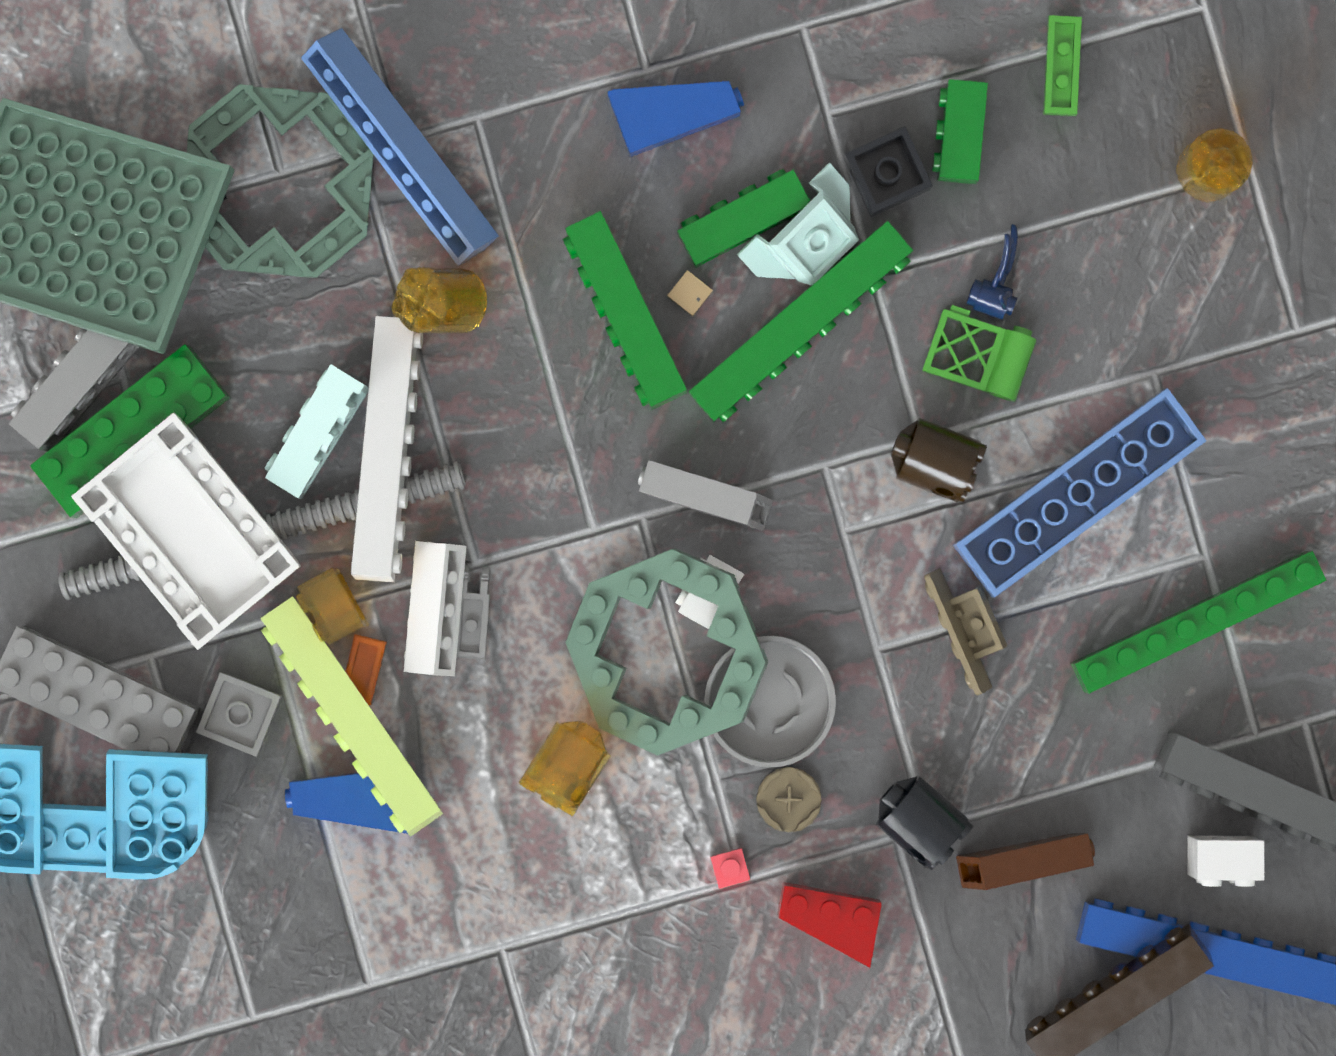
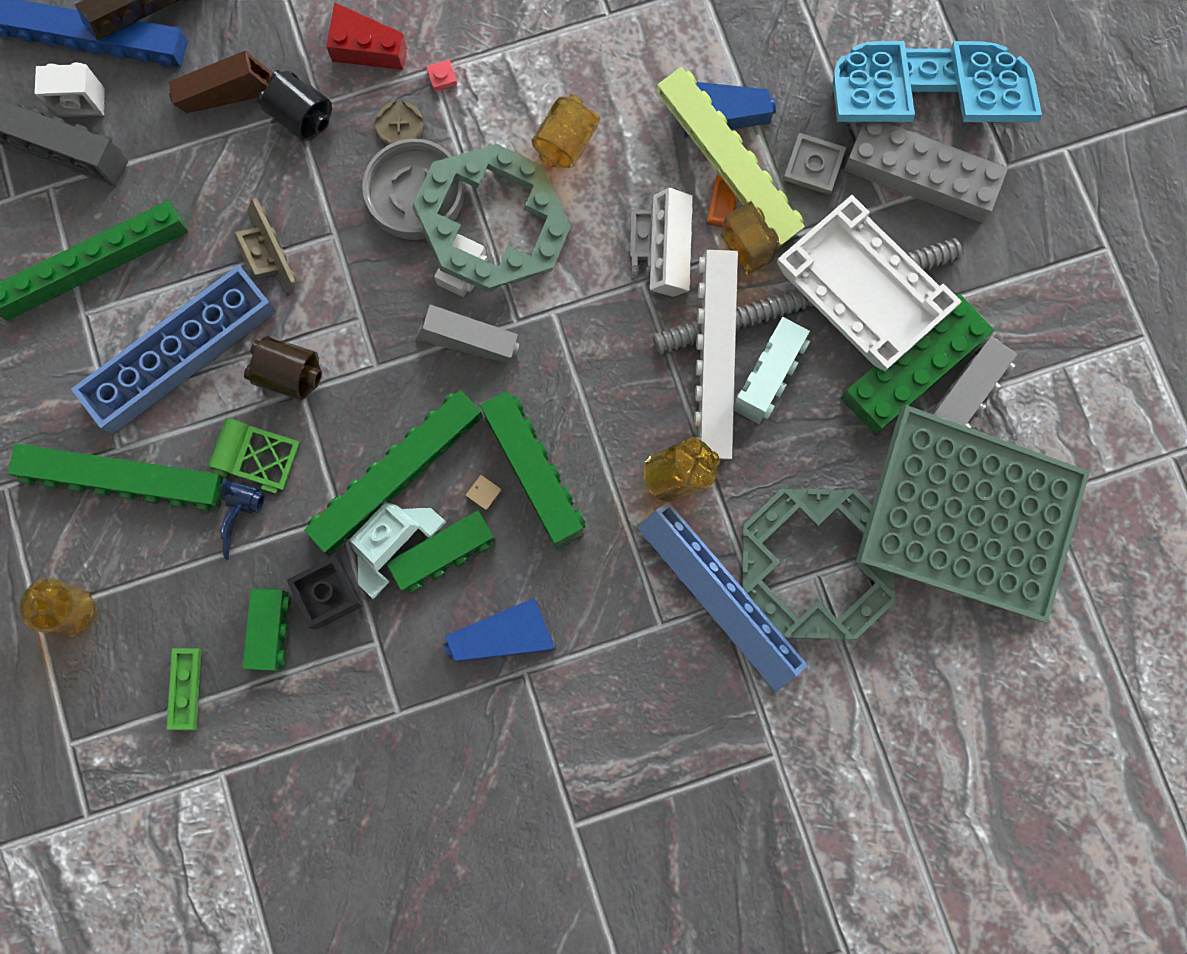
camera: 170 degrees right, 10 degrees down
(1152, 333) = (115, 476): none -> green brick

